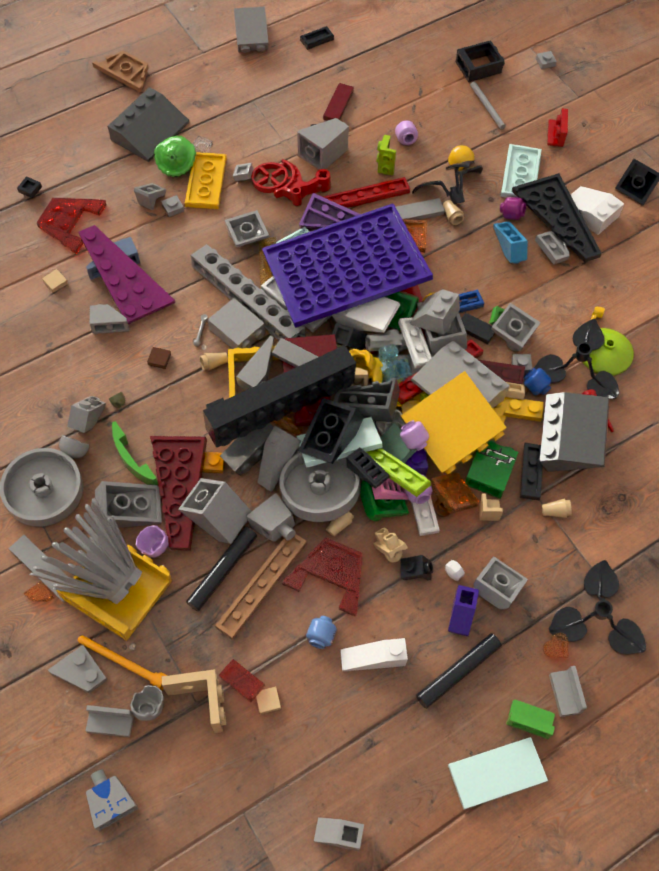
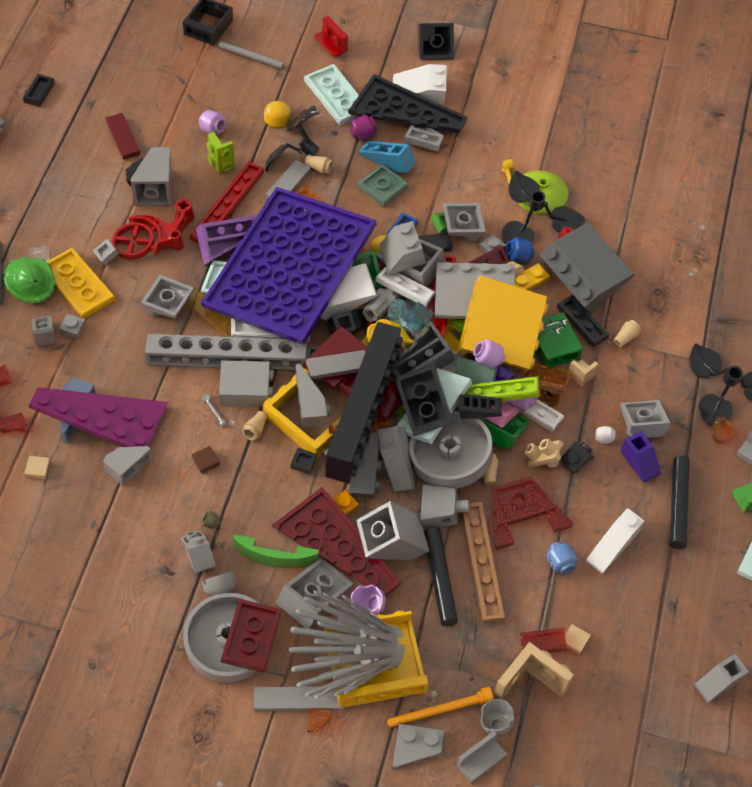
camera: 45 degrees left, 5 degrees down
(49, 497) = (251, 636): none -> dark red tile
(485, 260) = (382, 185): none -> sand green tile

